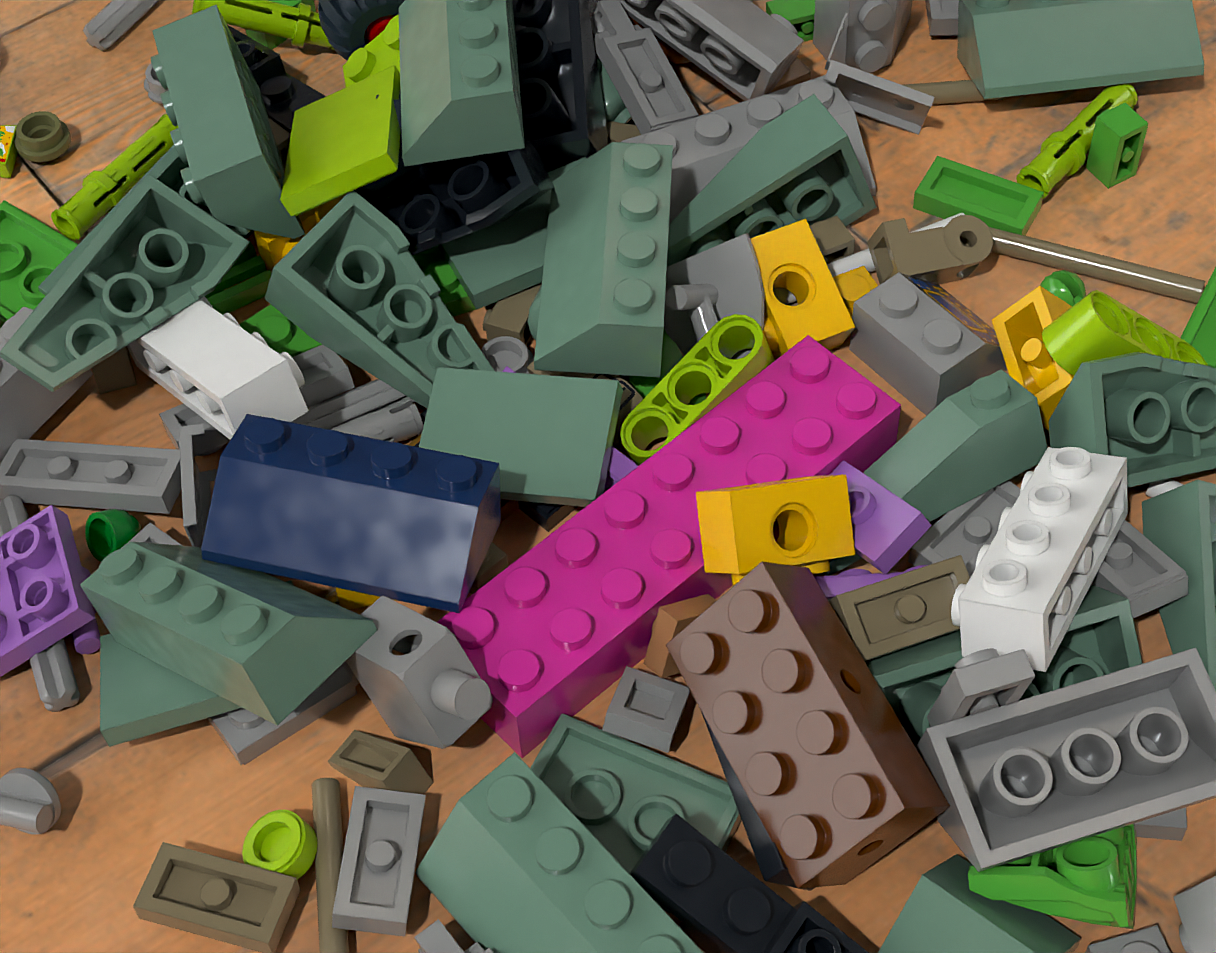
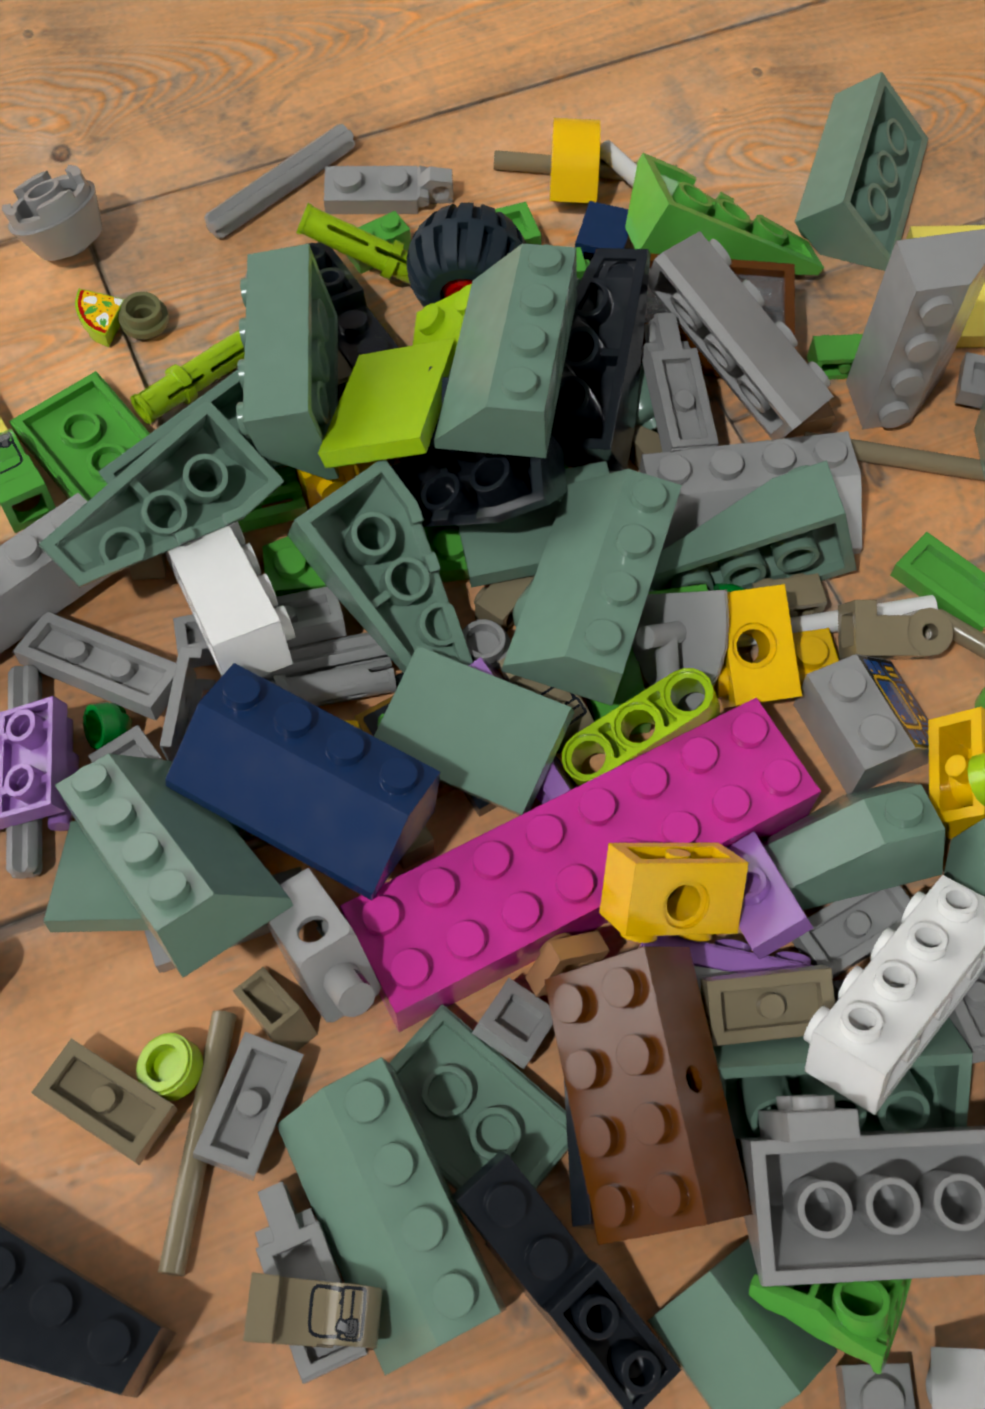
camera: 10 degrees right, 10 degrees up
(878, 96) = (886, 460): light grey piece -> none

